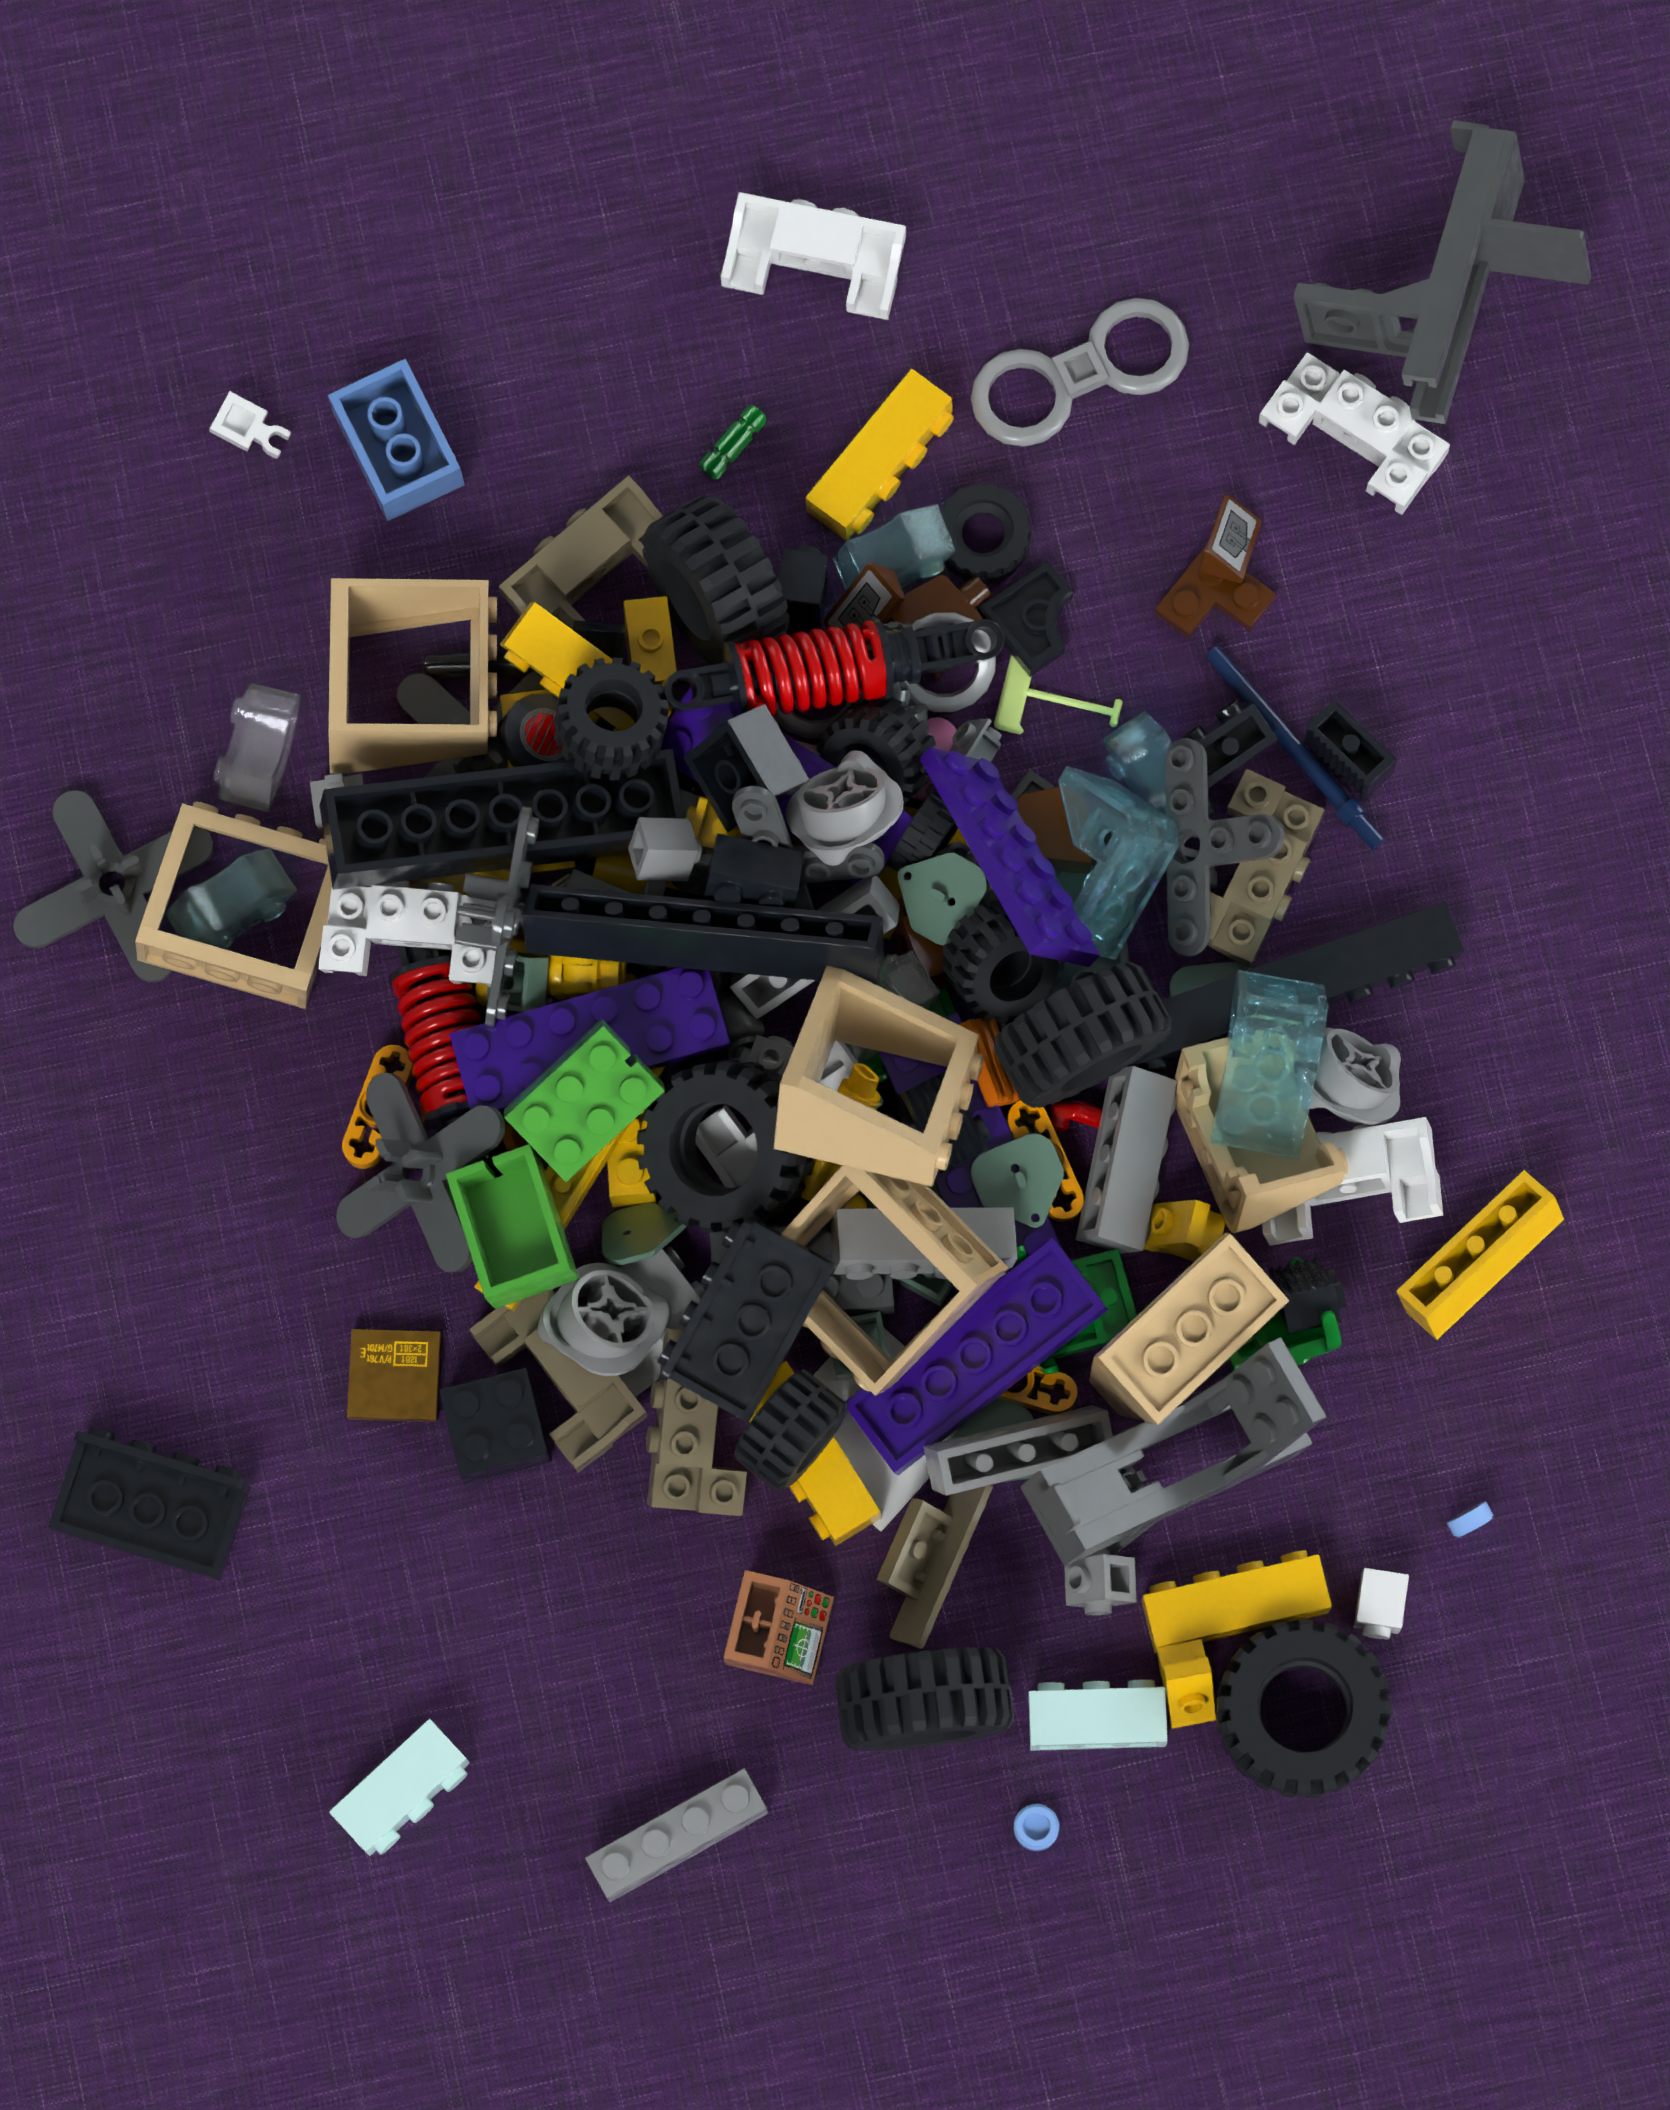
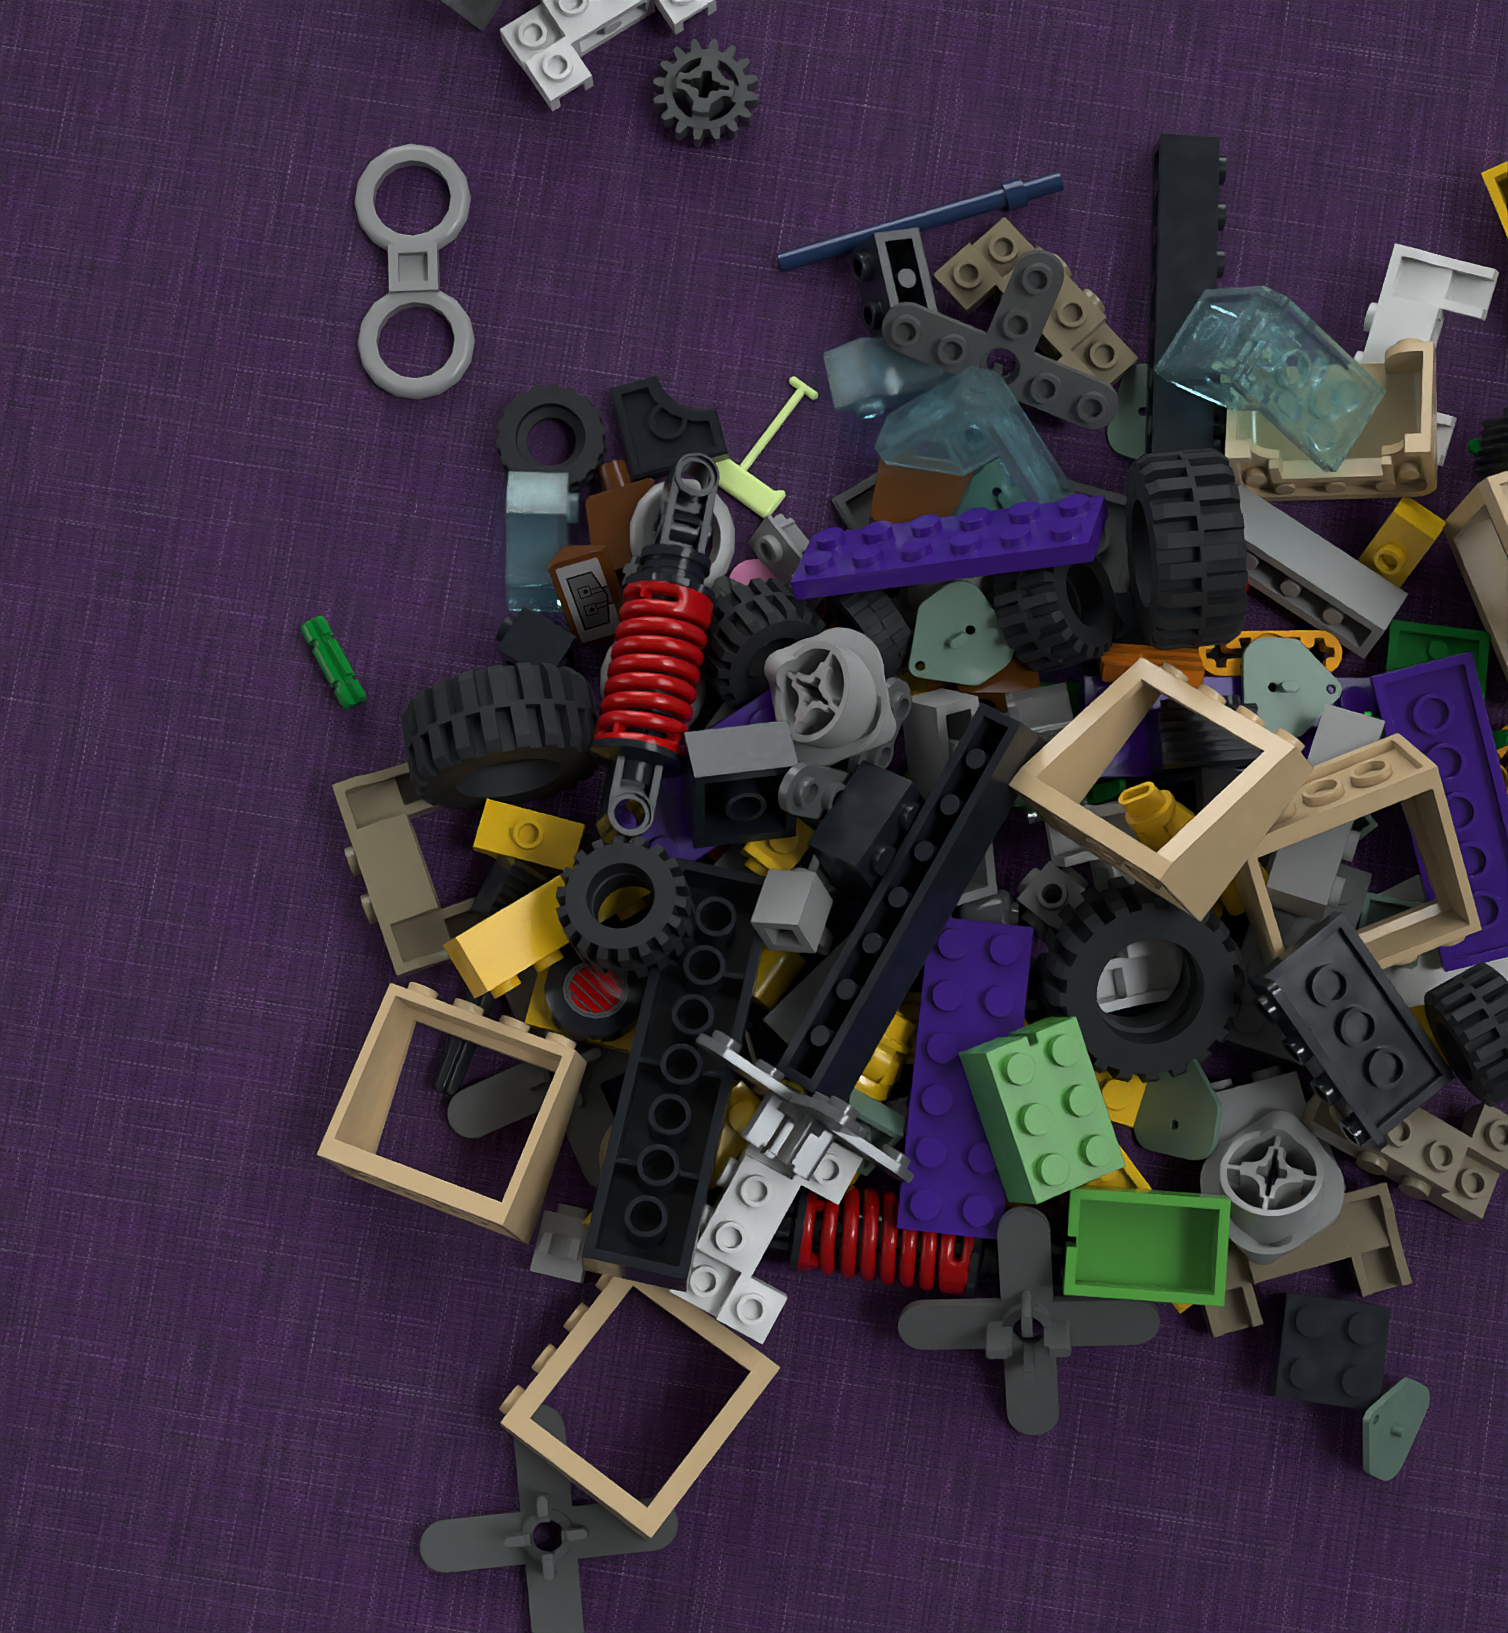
camera: 70 degrees left, 5 degrees up
(233, 900) = (625, 1410): clear light blue brick -> none
(242, 423) = (79, 1184): white plate -> none
(258, 747) = (461, 1312): clear brick -> none
(356, 1133) = (938, 1374): light orange beam -> none
(394, 1375) = (1223, 1439): pearl gold tile -> none
(396, 440) = (175, 1021): medium blue brick -> none
(454, 1499) = (1392, 1427): none -> sand green piece
(817, 242) = (151, 480): white bracket -> none
(880, 455) = (418, 512): yellow brick -> none
(1198, 594) = (707, 230): reddish brown plate -> none
(1231, 541) = (674, 191): slope -> none
(1310, 540) = (688, 86): none -> dark grey gear
(1349, 749) = (953, 163): black brick -> none
(1357, 1078) = (1325, 291): light grey piece -> none

